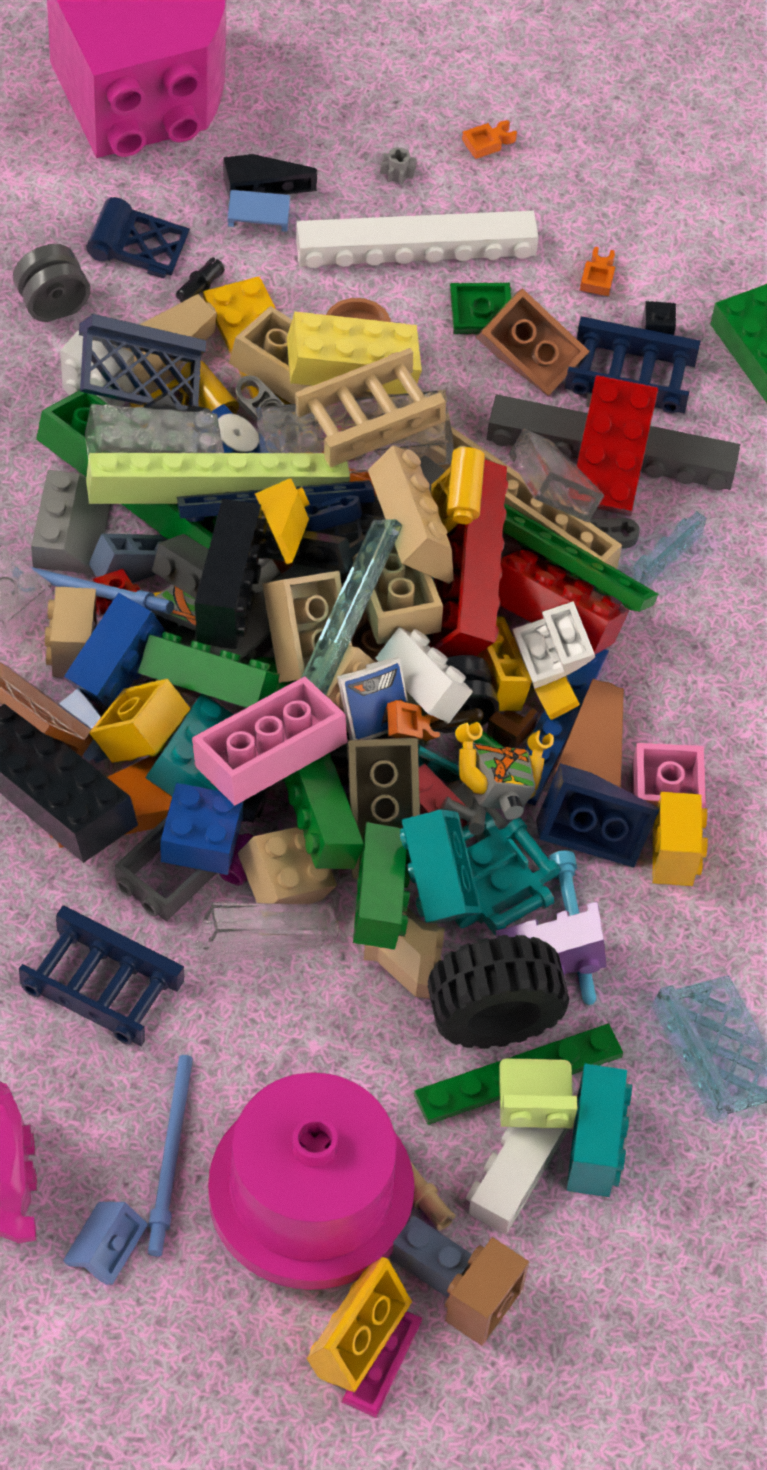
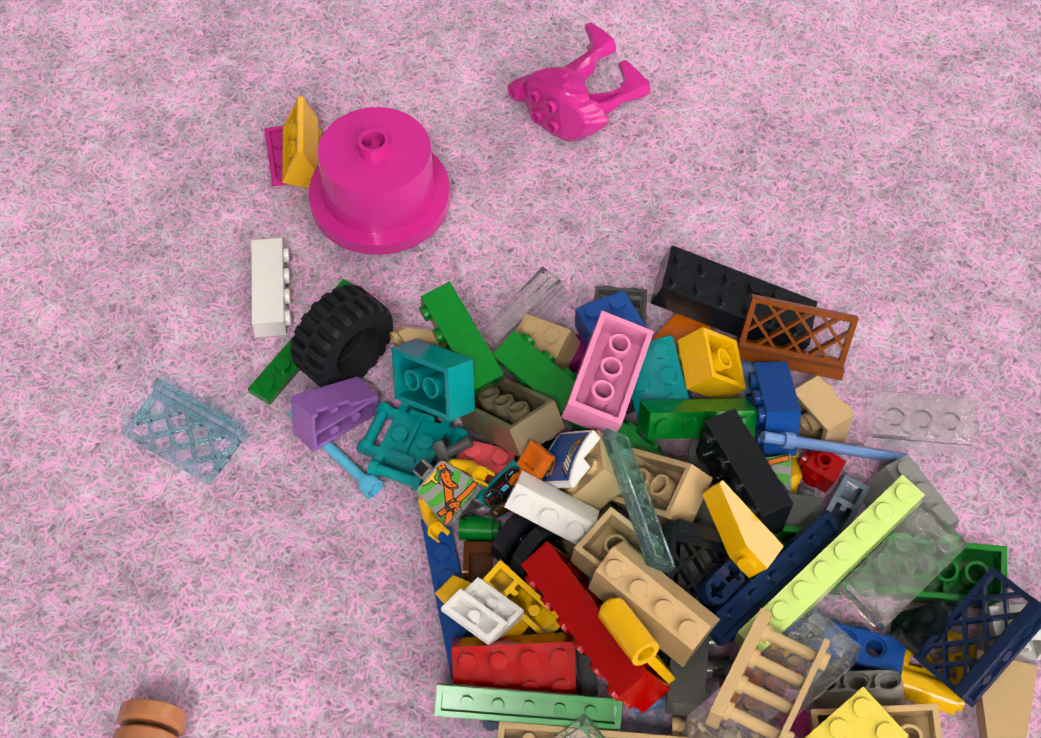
camera: 150 degrees right, 0 degrees up
(102, 944) = (603, 257): dark blue fence -> none
(106, 1240) = (474, 120): medium blue panel -> none
(160, 1216) = (456, 148): medium blue bar -> none
(238, 433) = (870, 639): white piece -> none
(429, 1255) = (284, 206): sand blue brick -> none
(431, 1204) = (314, 239): tan pin -> none
(485, 1290) = (240, 198): medium nougat brick -> none
(536, 1093) = (275, 301): yellowish green bracket -> none
(595, 816) = (374, 513): dark blue slope -> none
(597, 733) = (405, 582): nougat slope -> none
(599, 1131) = (228, 317): teal brick -> none
(668, 769) = (331, 582): bright pink brick -> none
(679, 839) = (295, 537): yellow brick -> none

